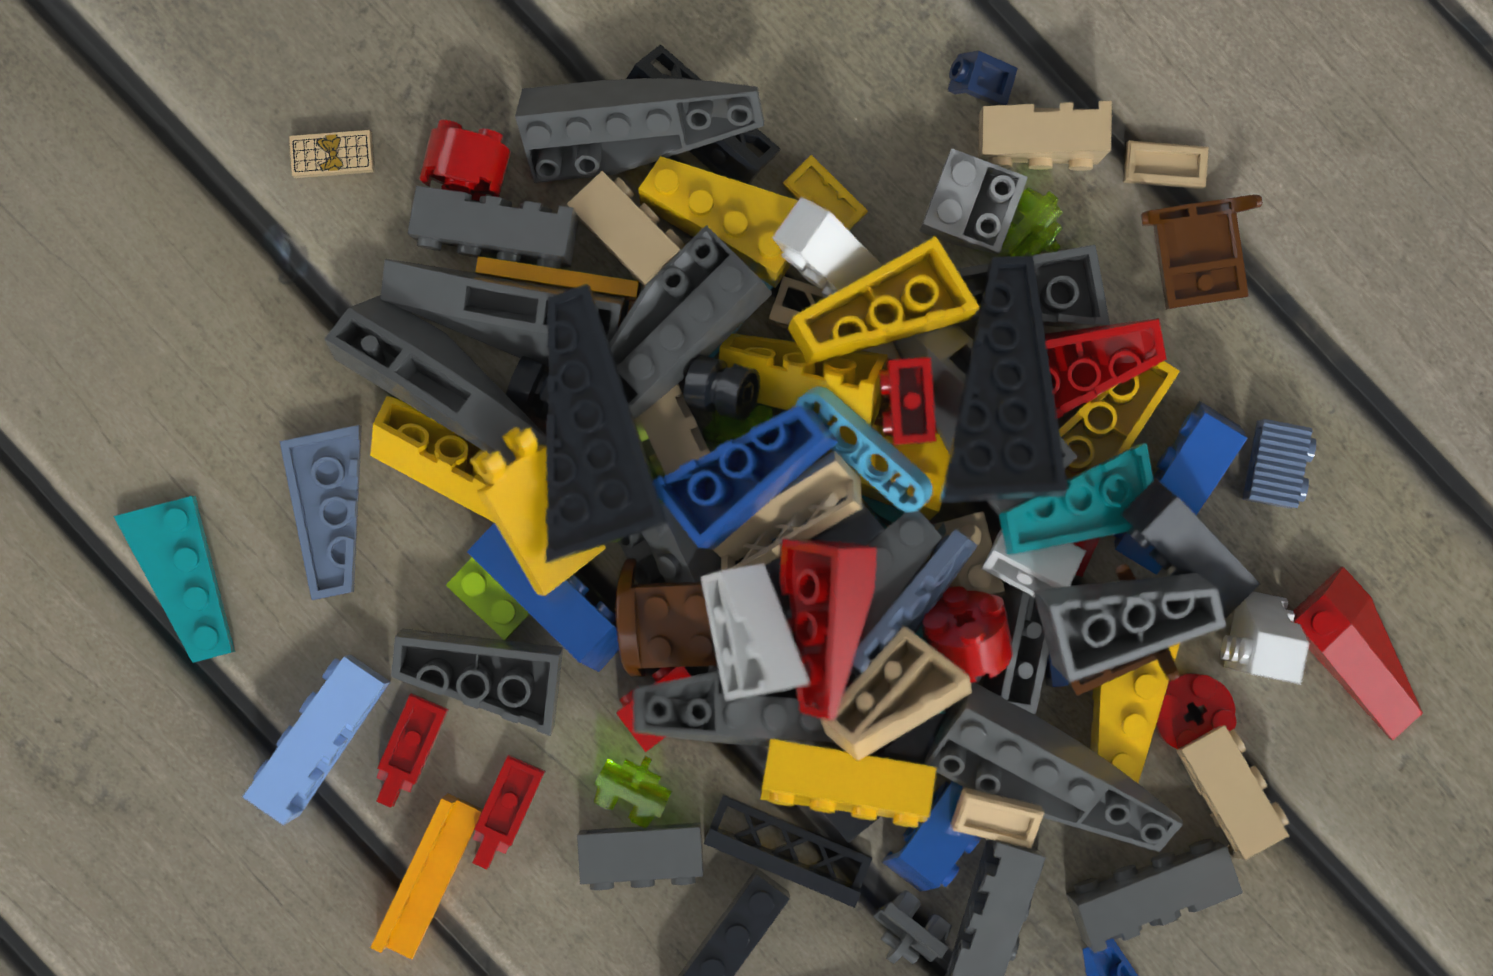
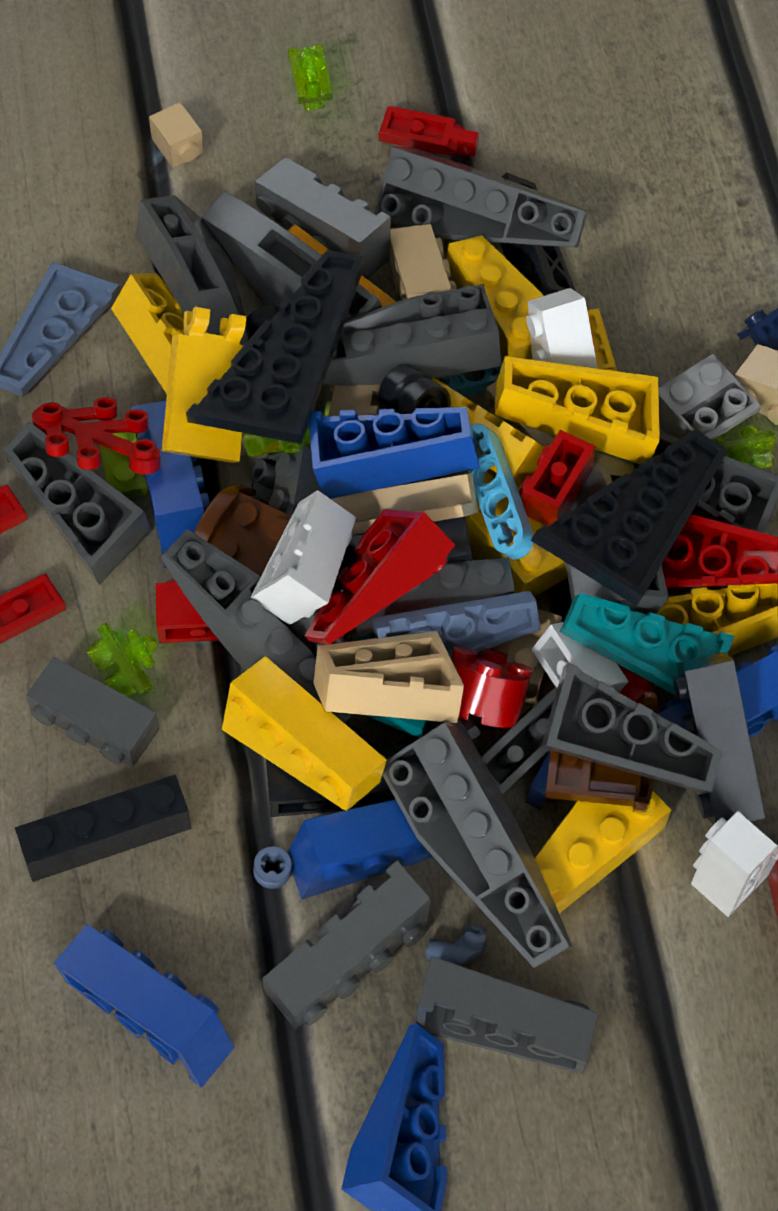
camera: 35 degrees right, 25 degrees down
(291, 221) = (176, 135): none -> tan brick
(331, 154) = (240, 117): tan tile -> none
(369, 66) = (310, 76): none -> clear neon green hips
(460, 610) = (56, 420): none -> red plant
(465, 160) = (336, 157): red brick -> none
(521, 56) = (427, 132): none -> red hinge
(783, 865) = (207, 796): black fence -> none
(887, 896) = (272, 879): none -> sand blue bush
(925, 940) = (266, 919): dark grey hips -> none
(997, 818) = (410, 844): tan tile -> none
(1078, 855) = (463, 950): none -> sand blue arm
(1201, 691) = (655, 882): red plate -> none
(1233, 792) = (632, 971): tan wedge -> none

